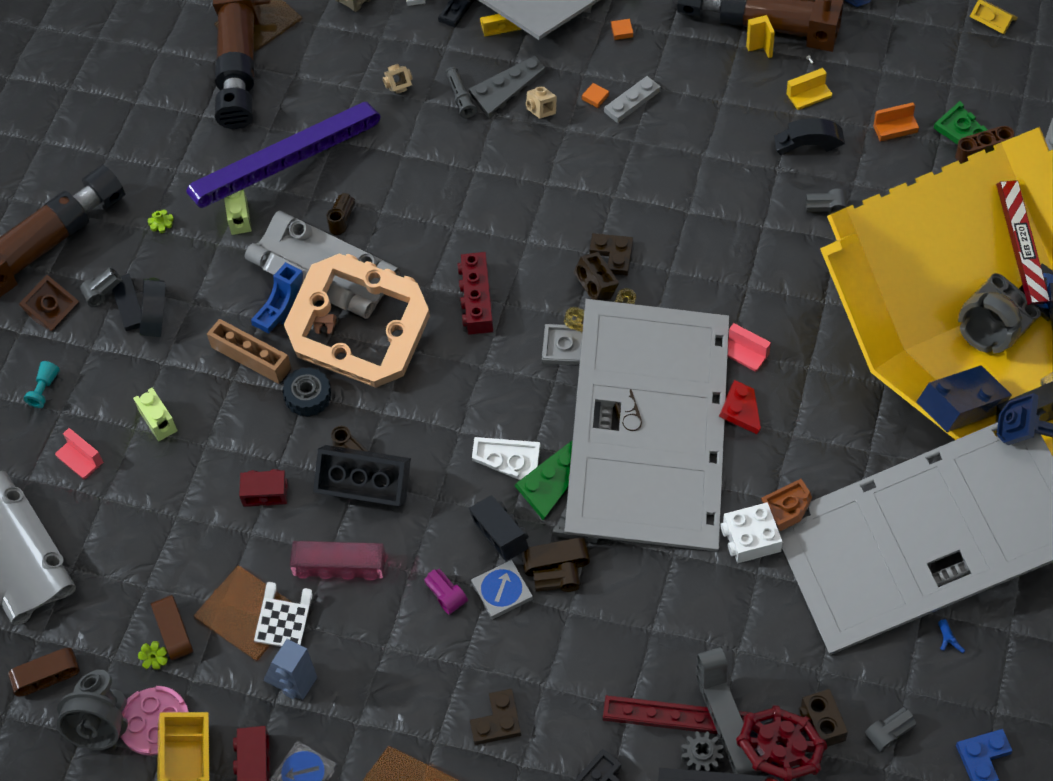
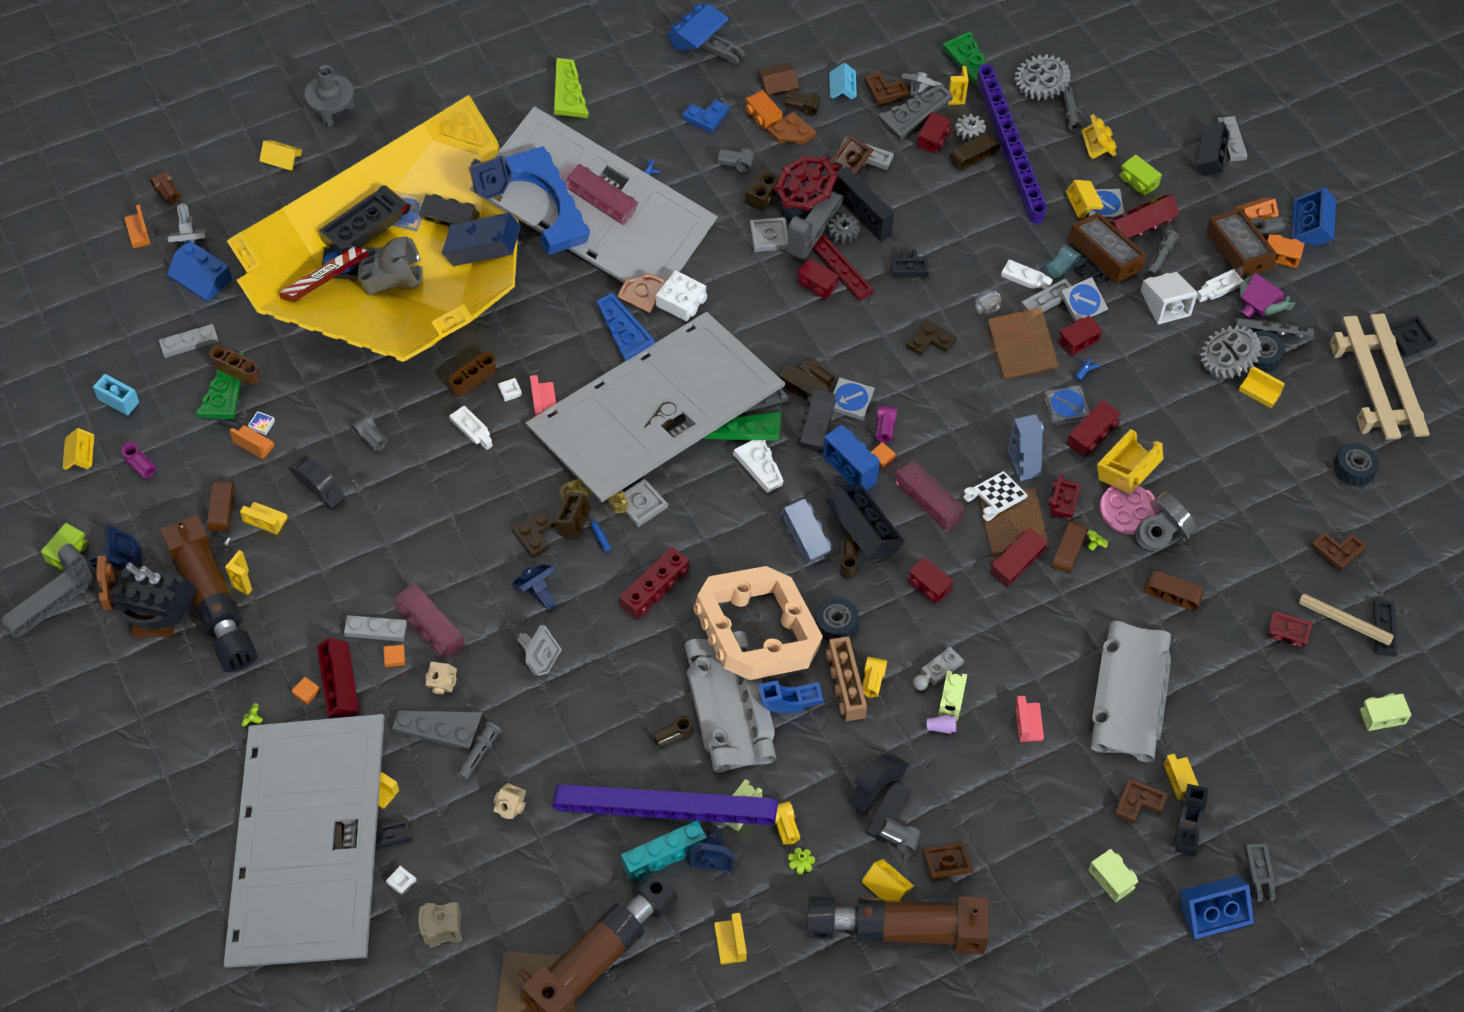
camera: 140 degrees left, 0 degrees up
(46, 374) = (999, 801): teal piece -> none
(81, 258) = (886, 881): none -> yellow panel
(141, 388) = (942, 724): none -> lavender cone
(157, 138) = (731, 940): none -> yellow panel
(189, 430) = (937, 669): none -> light grey plate
(200, 231) = (786, 824): none -> yellow piece
(207, 573) = (1018, 557): none -> dark red brick
(218, 670) = (1064, 498): none -> dark red bracket
(219, 156) = (712, 854): none -> dark blue piece
(235, 380) = (874, 672): none -> yellow piece
(263, 131) = (662, 851): none -> teal brick
(408, 430) = (805, 530): none -> wedge
(419, 563) = (884, 454): none -> orange tile
(432, 518) = (850, 458): none -> blue brick
(495, 172) = (540, 650): none -> light grey piece
(562, 210) = (534, 581): none -> dark blue piece
(562, 292) = (600, 536): none -> blue piece
(599, 130) = (430, 621): none -> clear pink brick
(606, 43) = (337, 678): none -> dark red brick
(661, 672) = (817, 279): none -> dark red brick
(741, 407) = (591, 367): red wing -> none
(757, 464) = (624, 328): none -> blue wing
(762, 275) = (471, 427): none -> white hinge
(762, 682) = (769, 234): none -> light grey tile
(779, 332) = (509, 389): none -> white tile
(817, 303) = (467, 380): none -> reddish brown beam
(846, 68) = (221, 505): none -> reddish brown beam
(911, 142) = (261, 423): none -> tile
(929, 532) = (601, 194): none -> clear pink brick
(951, 42) = (138, 460): none -> magenta piece
(1002, 484) = (537, 168): none -> blue arch
(1028, 58) = (116, 394): none -> medium azure brick

